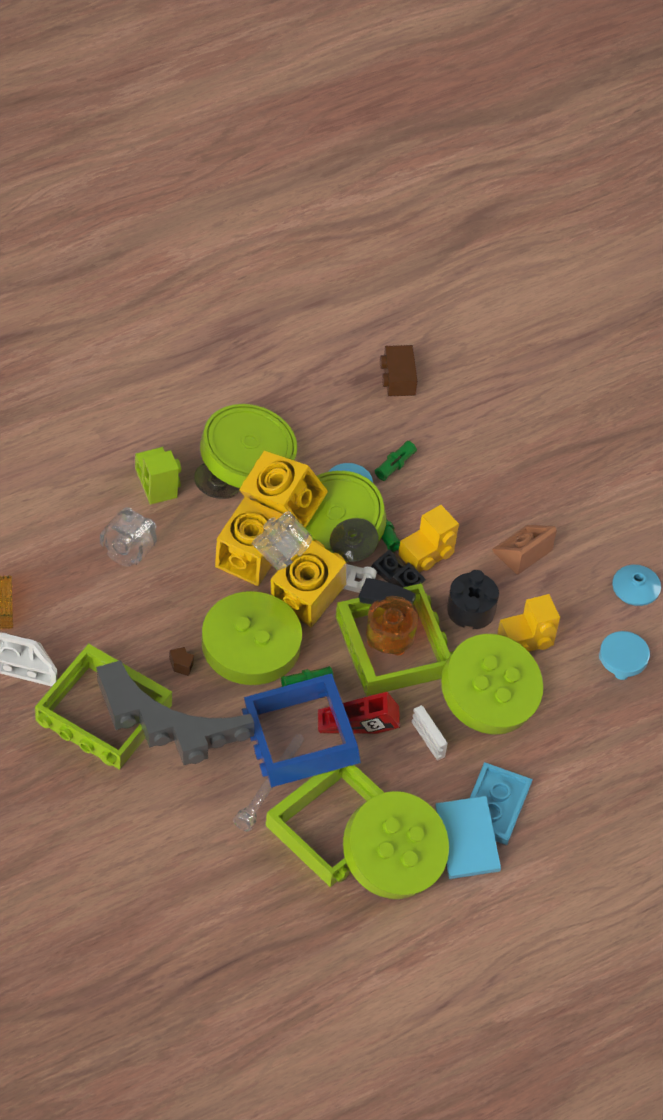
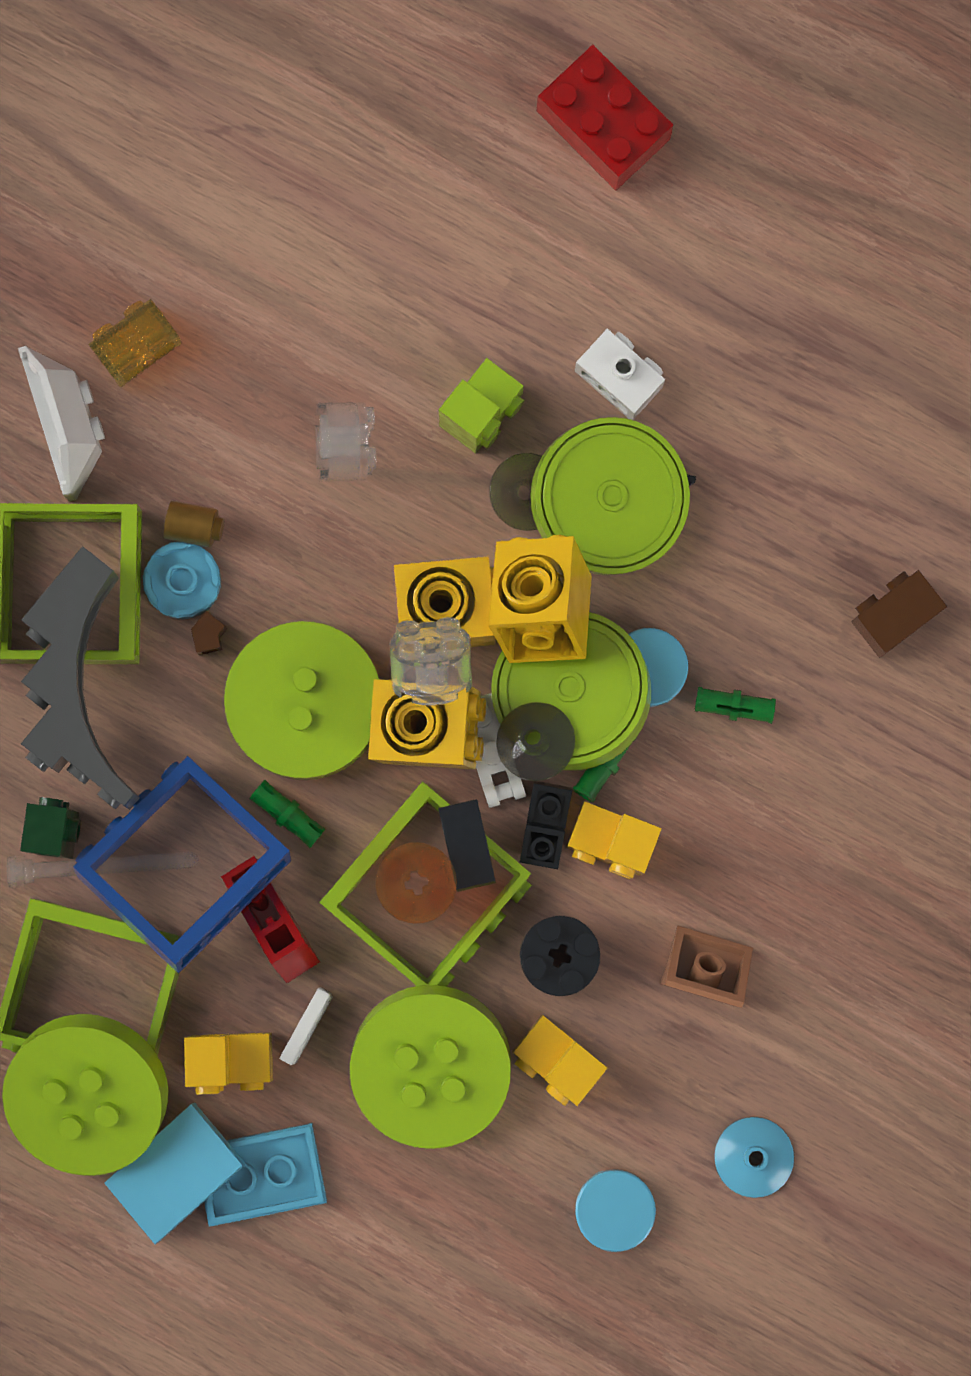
camera: 60 degrees right, 30 degrees up
(50, 344) = (604, 117): none -> red brick
(116, 632) = (193, 524): none -> pearl gold brick
(143, 655) = (182, 580): none -> medium azure tile
(186, 411) = (620, 373): none -> white brick
(236, 781) = (50, 829): none -> dark green brick
(423, 773) = (228, 1059): none -> yellow brick

